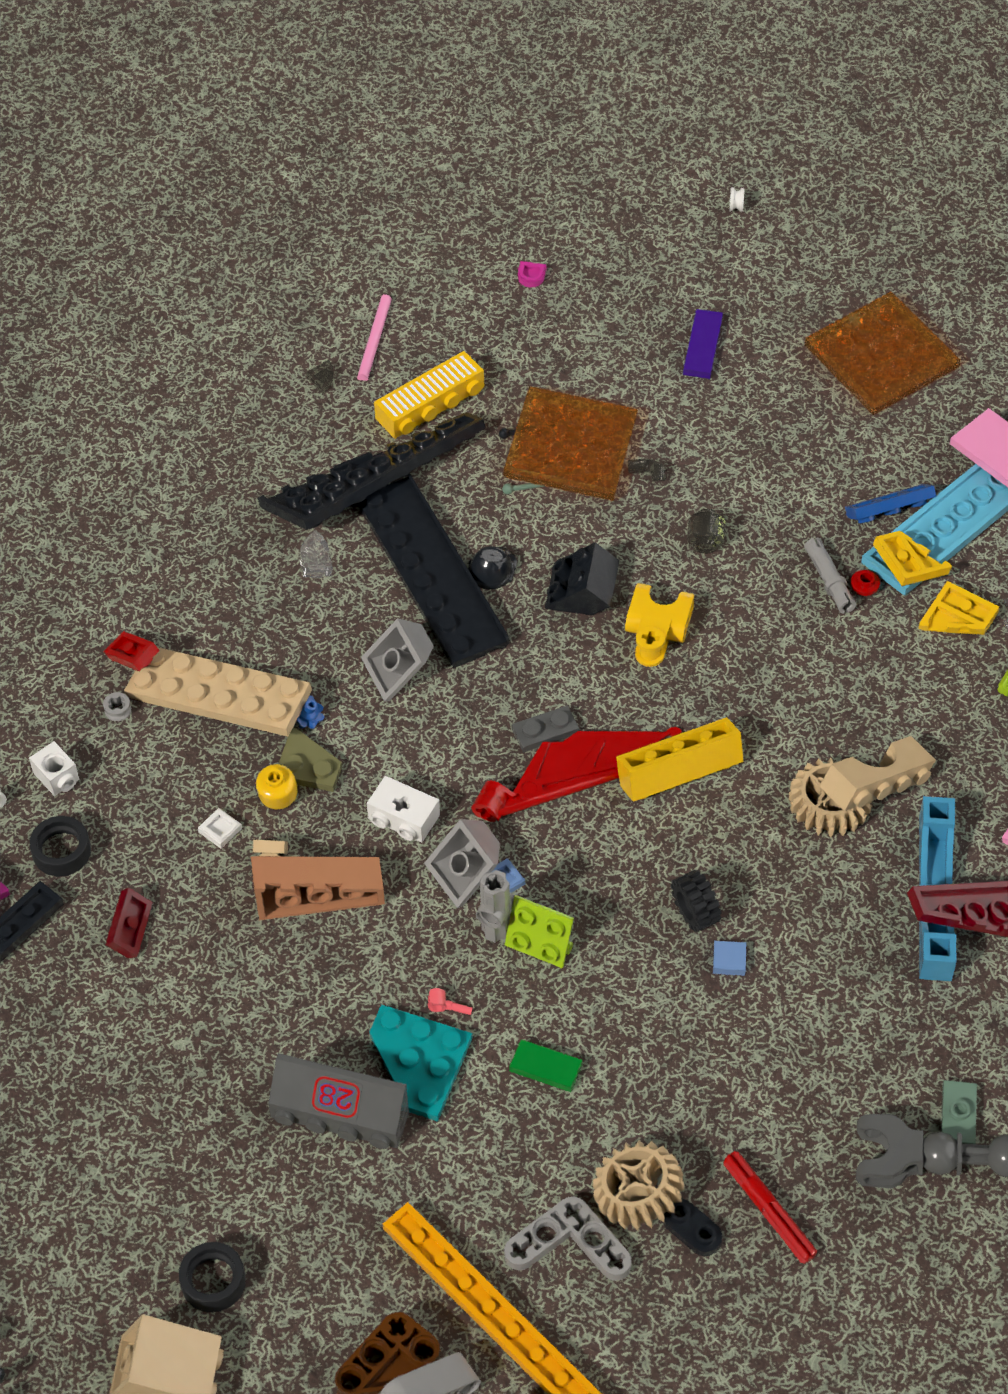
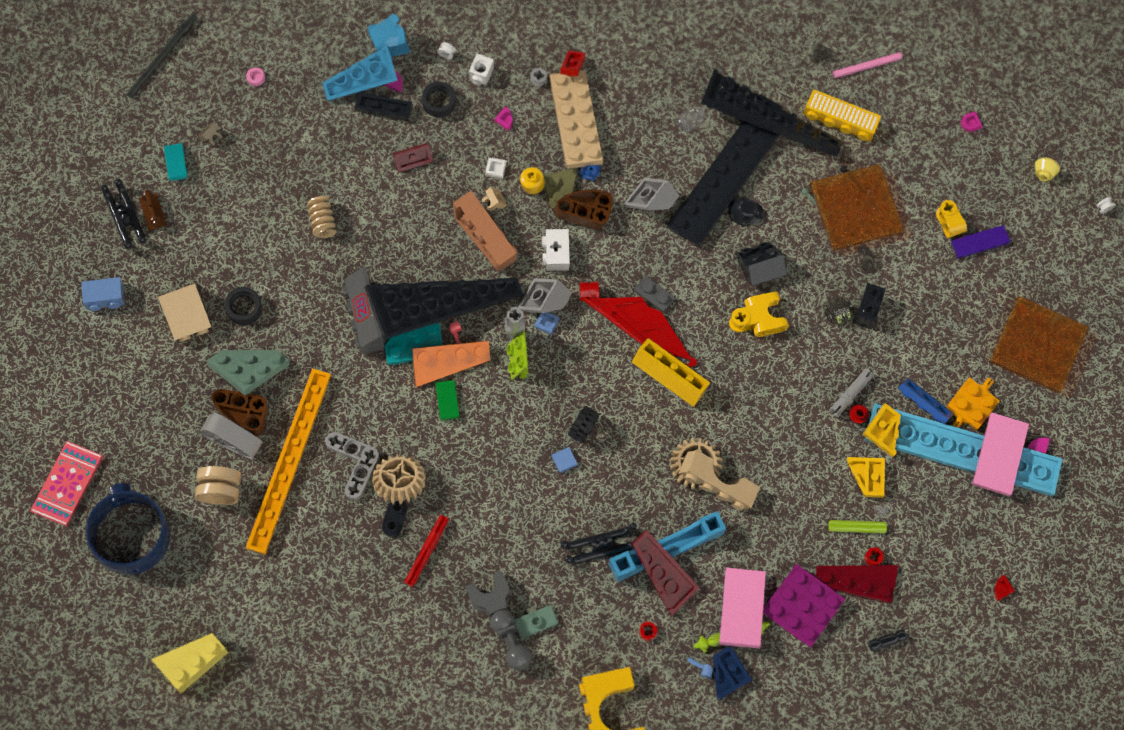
camera: 55 degrees right, 15 degrees up
(141, 1094) = (321, 217): none -> tan piece
(151, 780) = (504, 119): none -> dark pink tile
(321, 1320) = (247, 367): none -> sand green plate
(366, 742) = (588, 203): none -> reddish brown beam
(386, 1013) = (419, 305): none -> black wing
(482, 1036) = (443, 360): none -> orange wing
(649, 229) = (1046, 168): none -> light yellow cone
(656, 355) = (951, 219): none -> yellow piece
(722, 493) = (869, 306): none -> black brick
(886, 968) = (599, 544): none -> black piece
(921, 457) = (972, 403): none -> light orange plate

